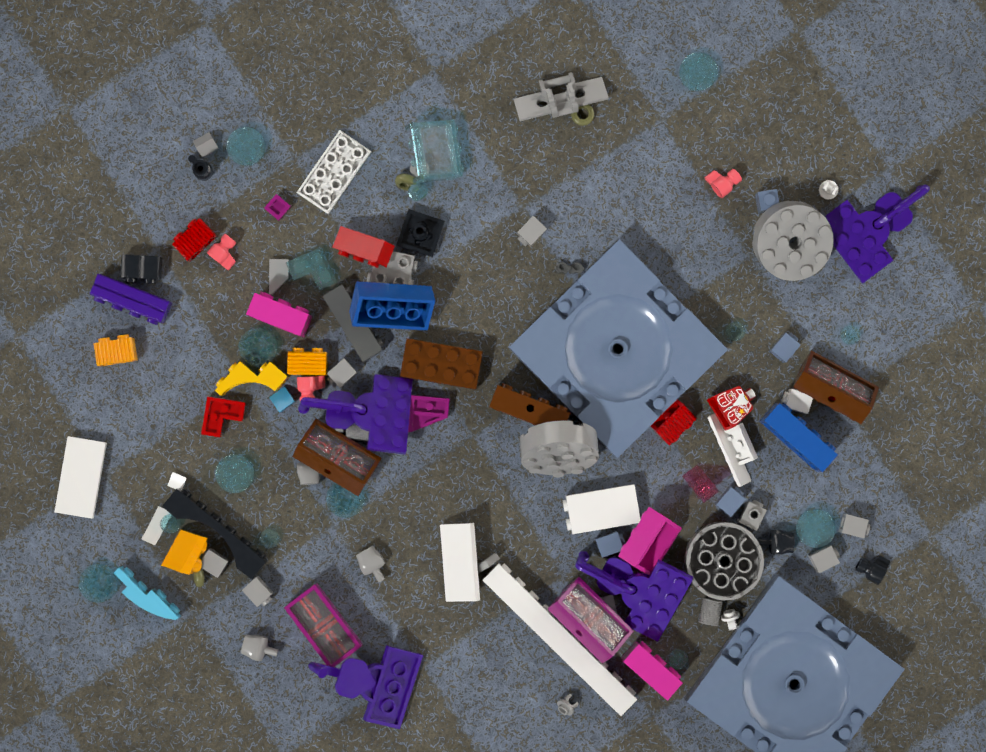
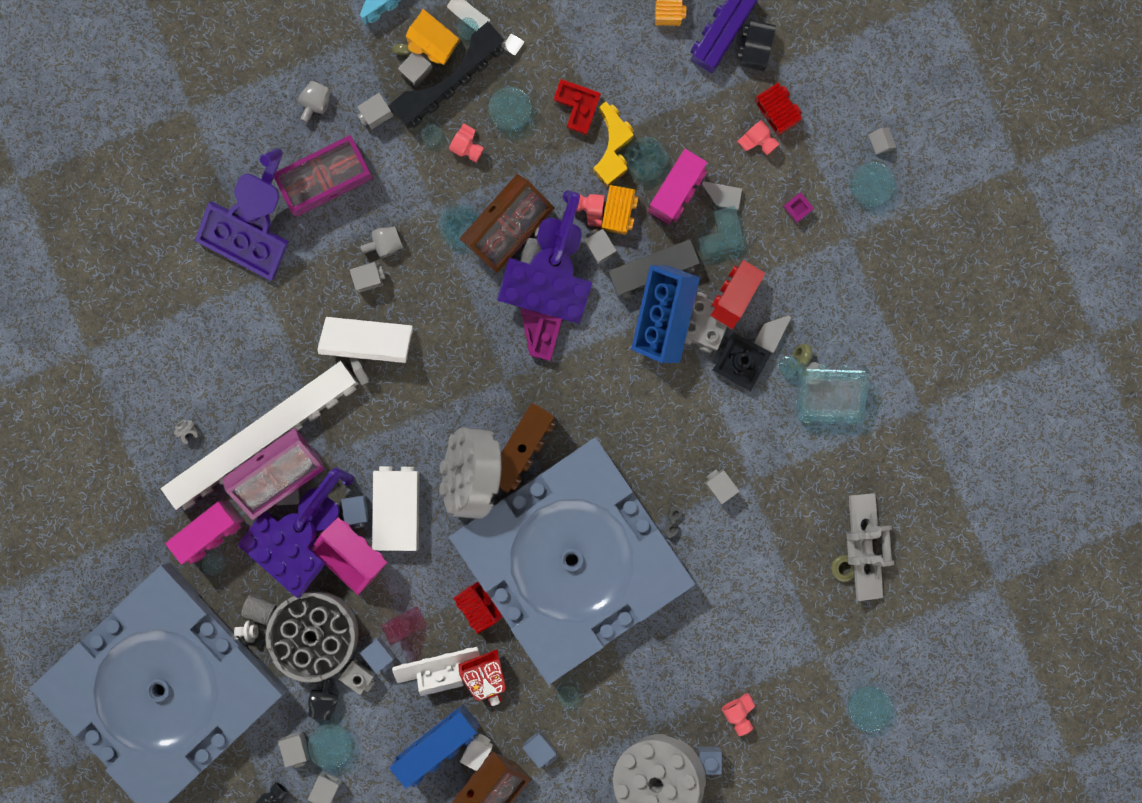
camera: 100 degrees right, 0 degrees up
(201, 169) = (856, 130): black piece -> none
(273, 508) = (463, 145): none -> coral piece
(282, 399) = (582, 176): dark azure slope -> none
(307, 475) = (493, 187): light grey piece -> none
(334, 172) = (827, 277): white tile -> none
(391, 211) = (771, 333): none -> light grey tile
(404, 571) = (367, 277): none -> light grey brick
(441, 364) = (590, 358): reddish brown brick -> none

